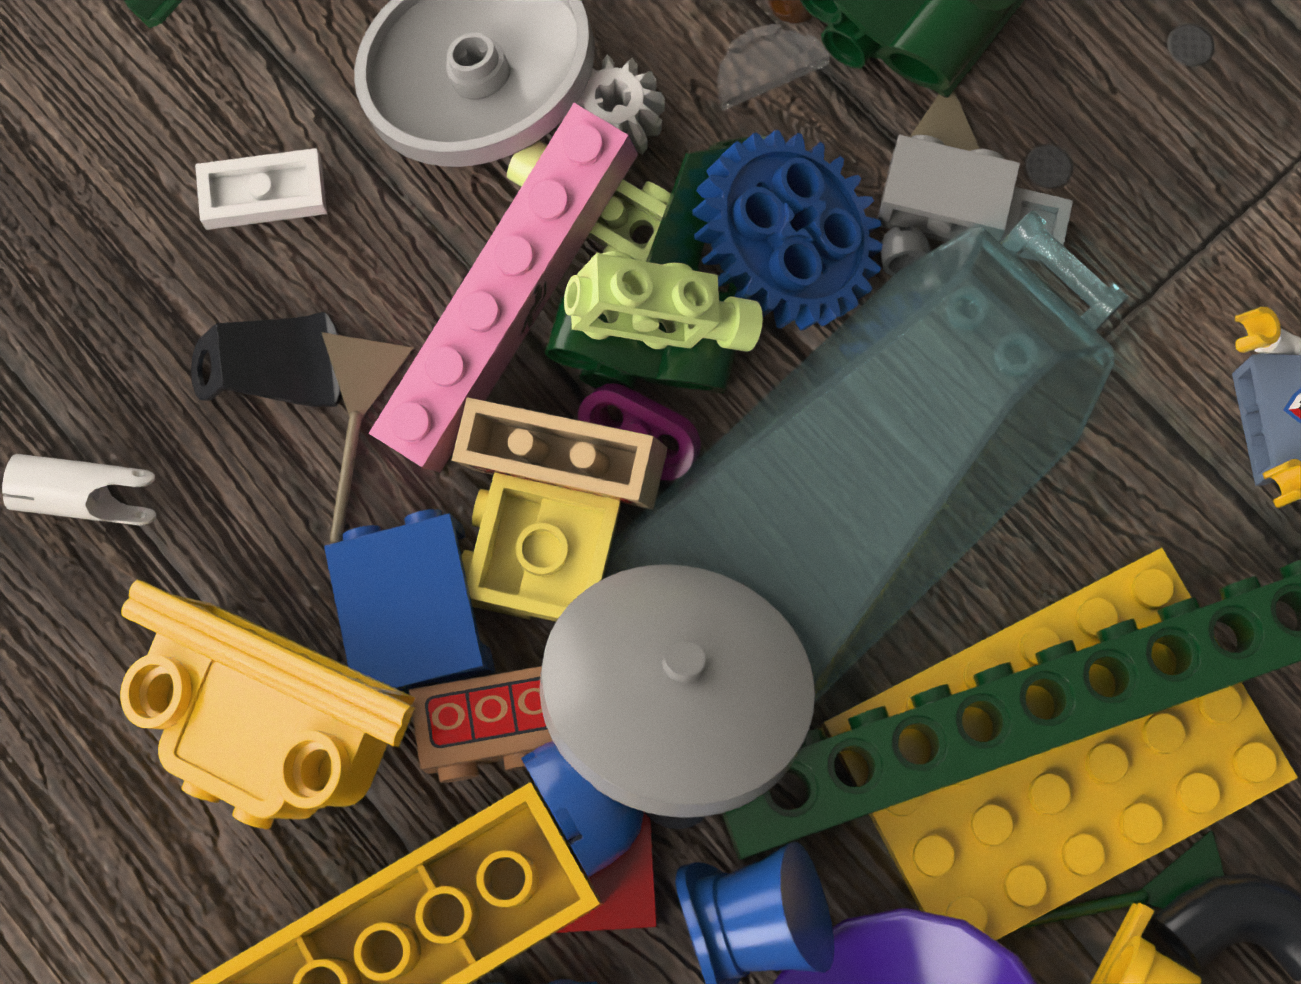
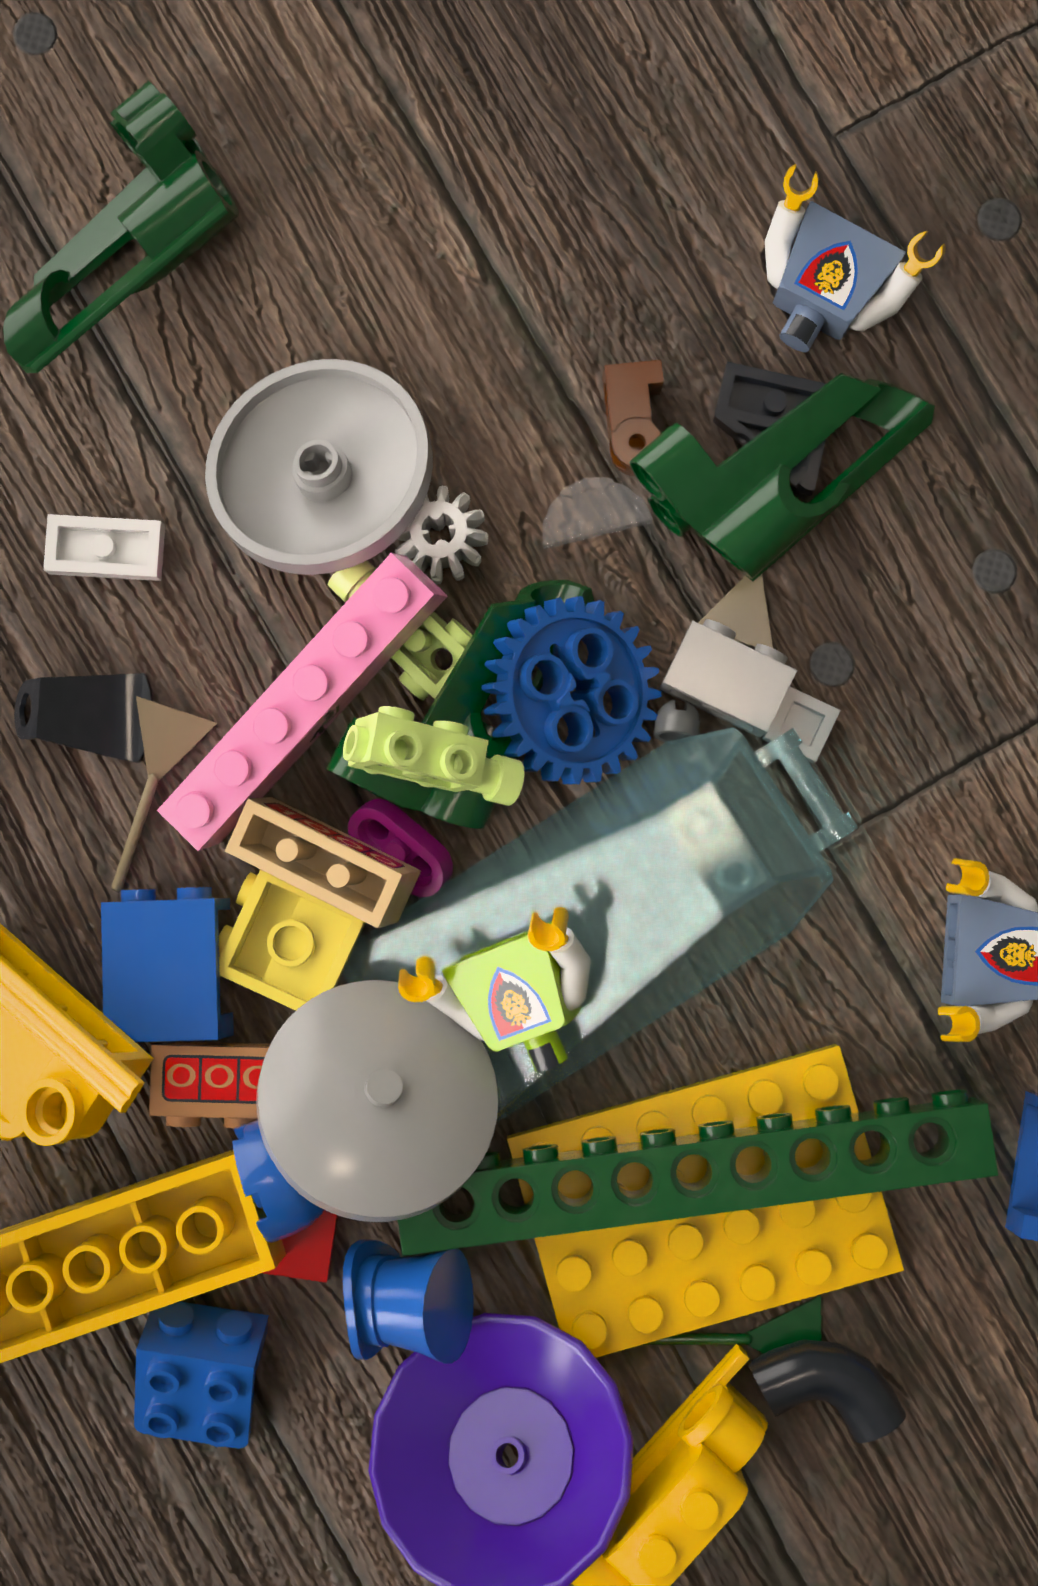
camera: 15 degrees right, 10 degrees up
(802, 532) = (512, 989): none -> torso

